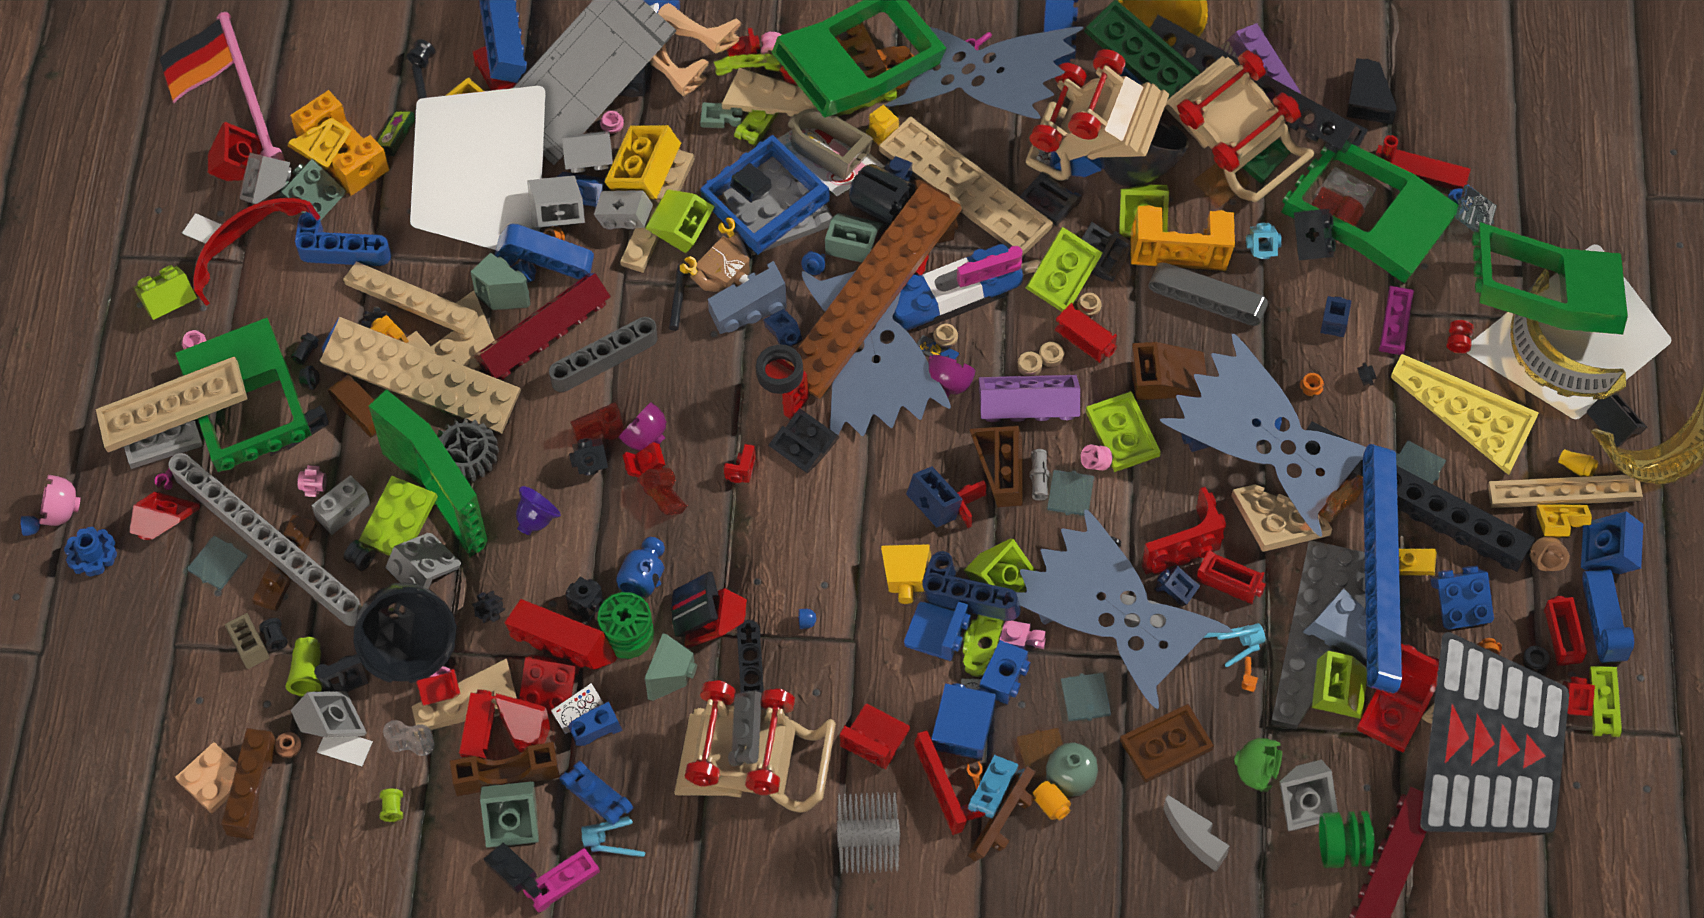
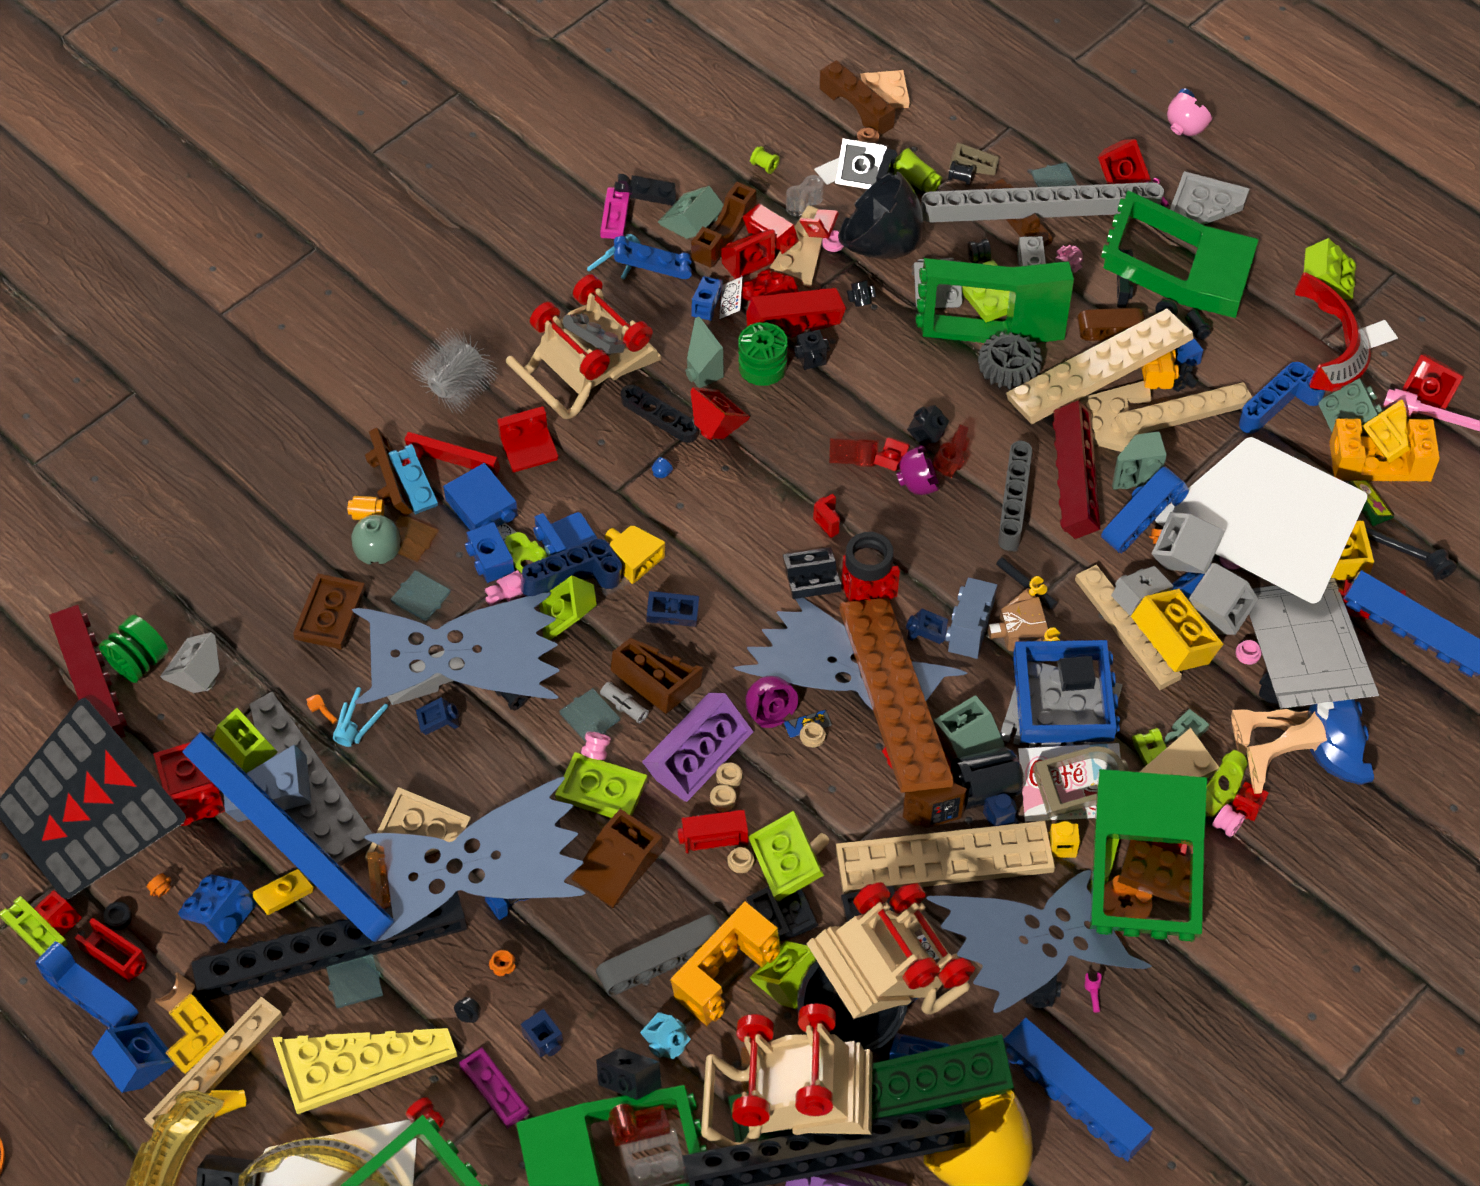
camera: 130 degrees right, 5 degrees down
(90, 551) = (1129, 117): blue plant -> none
(171, 404) = (1206, 205): tan plate -> none
(192, 338) = (1266, 266): bright pink plate -> none
(263, 177) = (1384, 374): light grey slope -> none
(534, 511) = (916, 367): dark purple hat -> none
(642, 569) = (799, 395): blue piece -> none
(679, 218) = (1096, 617): lime slope -> none
(694, 604) = (738, 401): black slope -> none
(813, 263) = (970, 689): blue plate -> none
(938, 296) = (848, 773): piece -> none
(969, 494) = (653, 630): red bracket -> none
(976, 775) = (438, 482): orange hand -> none
(990, 267) = (829, 780): dark pink plate -> none
(1190, 543) = (448, 749): red bracket -> none
(1195, 833) = (248, 573): light grey slope -> none
(1228, 584) = (407, 764): red window -> none
(1258, 762) = (248, 646): bright green cylinder -> none

